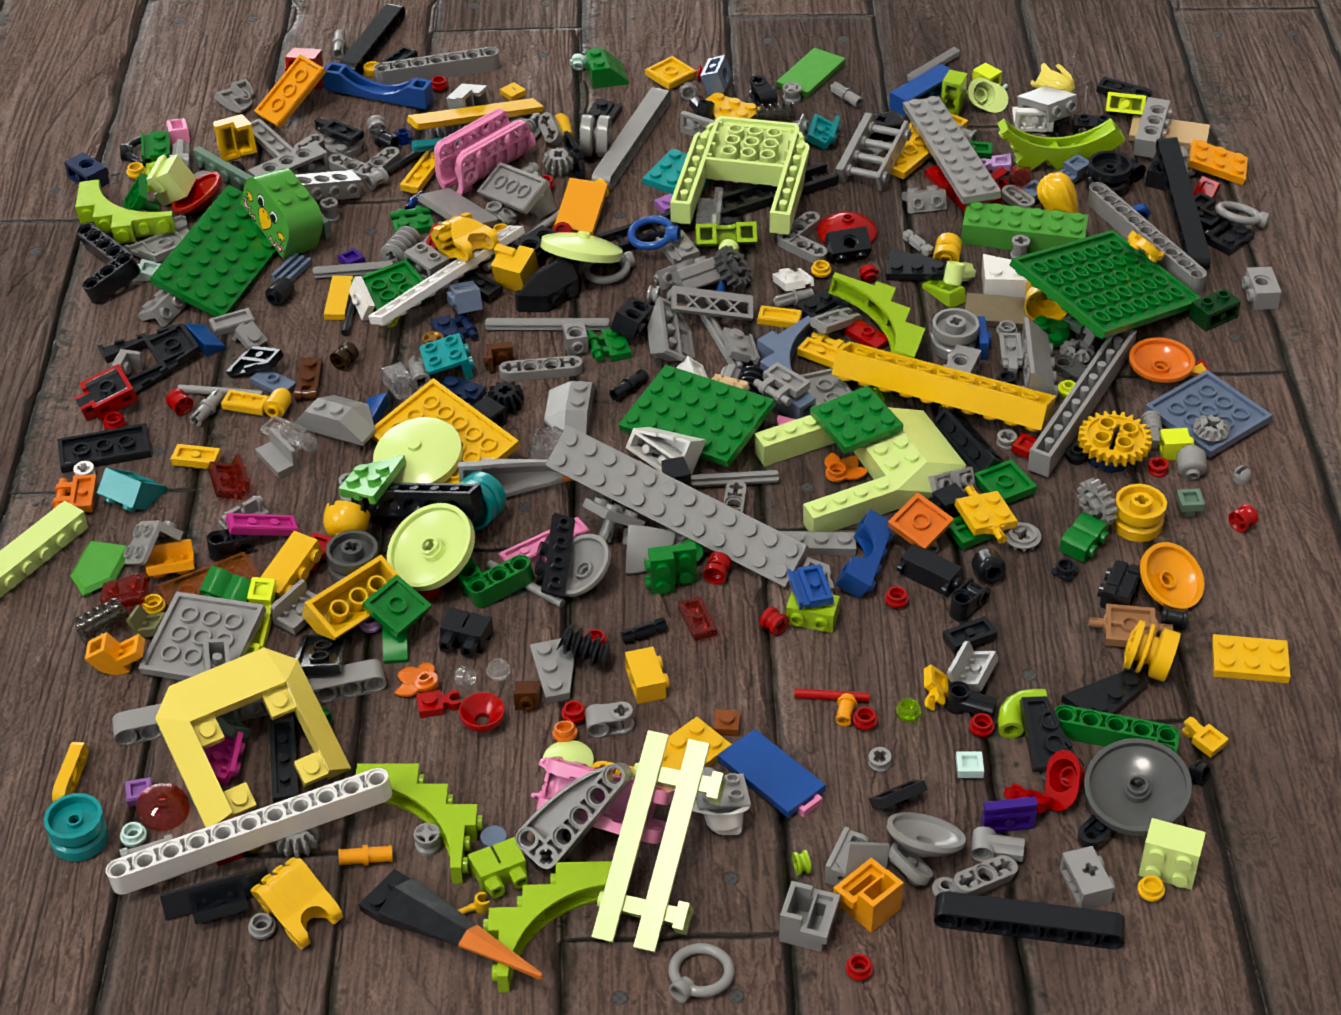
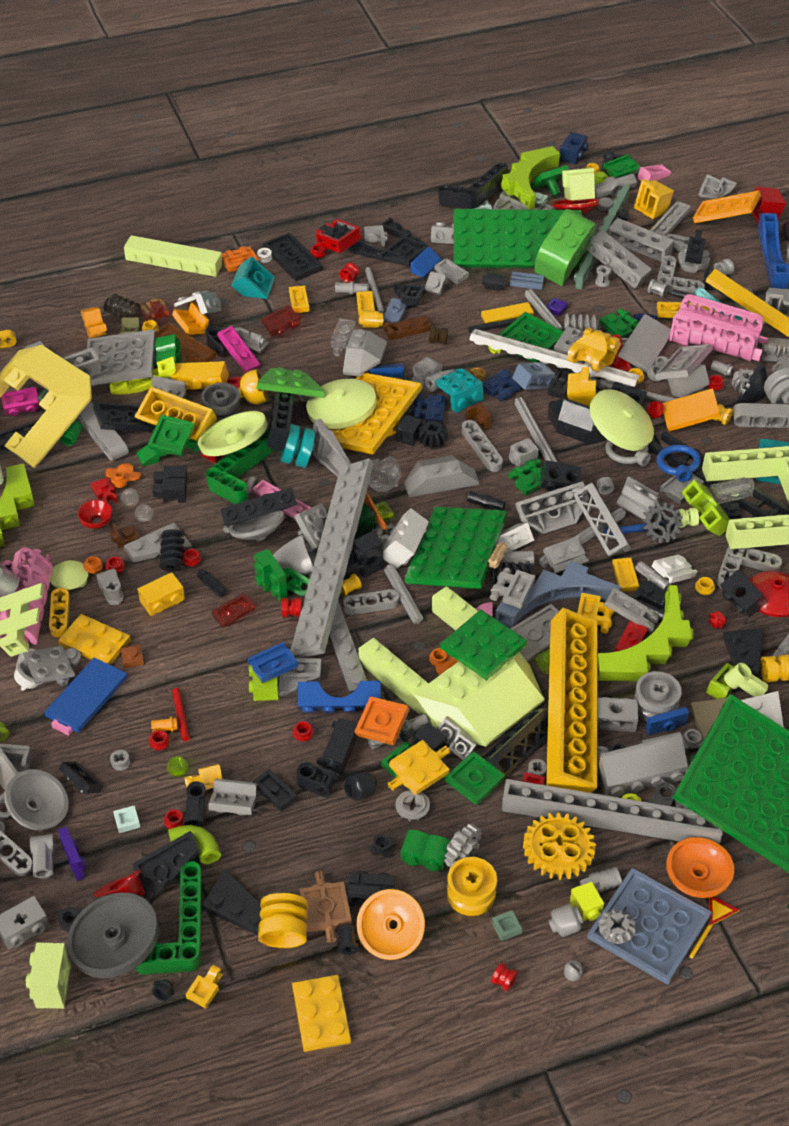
camera: 70 degrees right, 5 degrees up
(98, 565) = (174, 290): bright green tile -> none
(278, 455) = (317, 337): light grey panel -> none
(361, 298) = (504, 321): white plate -> none
(774, 621) = (241, 657): red wheel -> none
(1016, 791) = (98, 868): red plate -> none
(1151, 888) = (20, 973): yellow plate -> none
(1158, 467) = (554, 903): red bush -> none

